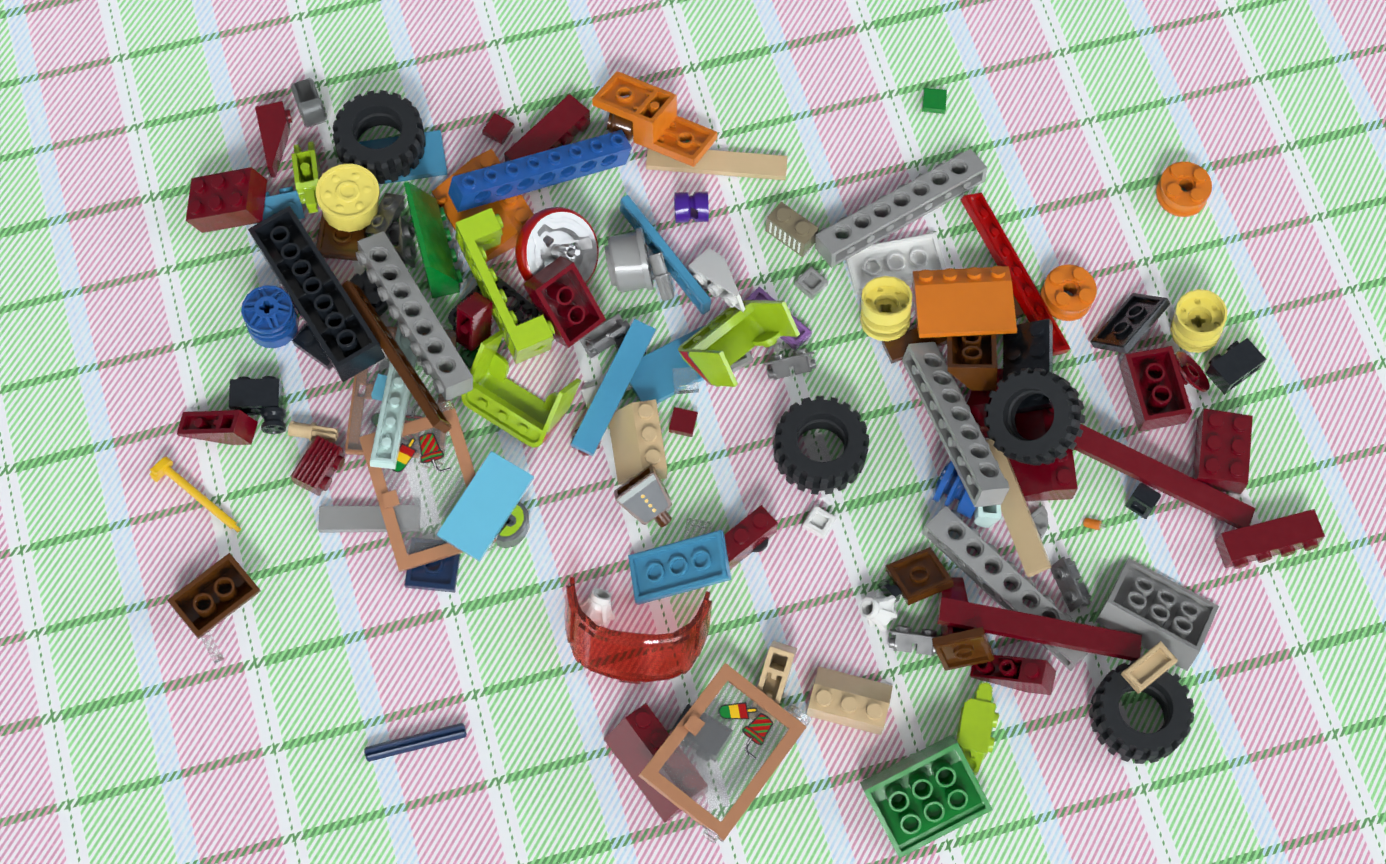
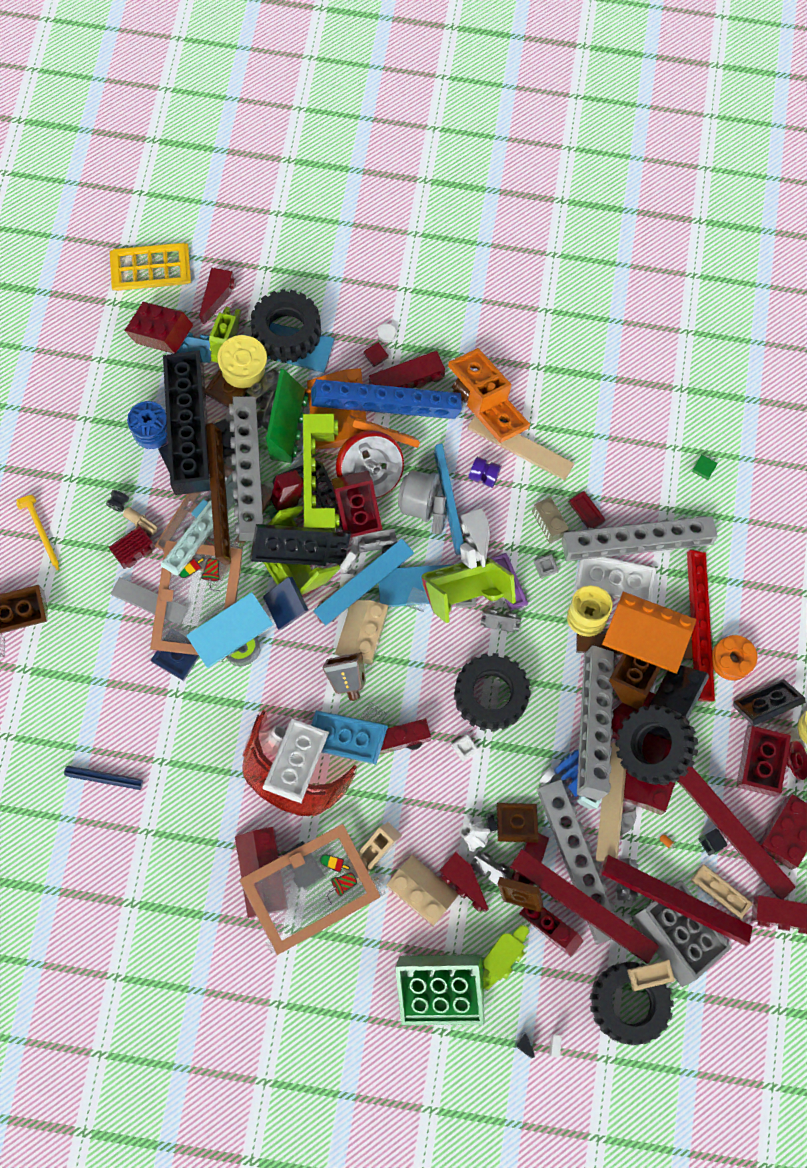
camera: 25 degrees right, 5 degrees up
(176, 137) = (150, 266): none -> yellow piece
(222, 426) = (78, 489): dark red slope -> none
(255, 394) = (112, 477): black brick -> none
(308, 102) = (251, 280): dark grey animal -> none
(498, 99) = (386, 333): none -> white tile
(519, 375) = (298, 545): none -> black hinge
(534, 449) = (285, 603): none -> dark blue tile
(536, 207) = (396, 435): none -> orange tile
(584, 374) = (348, 563): none -> white tile
(637, 615) = (296, 760): none -> white tile
(683, 422) = (402, 629): dark red tile -> none
(720, 305) = (468, 555): none -> white tile
(826, 202) = (586, 510): none -> dark red tile
(888, 663) = (462, 876): none -> dark red slope
(928, 510) = (547, 776): none -> white tile
(1048, 814) = (524, 1045): none -> black slope
(1081, 798) = (555, 1046): none -> white tile
(1135, 578) = (677, 900): none -> dark red tile
(1178, 550) = (721, 891): none -> tan tile

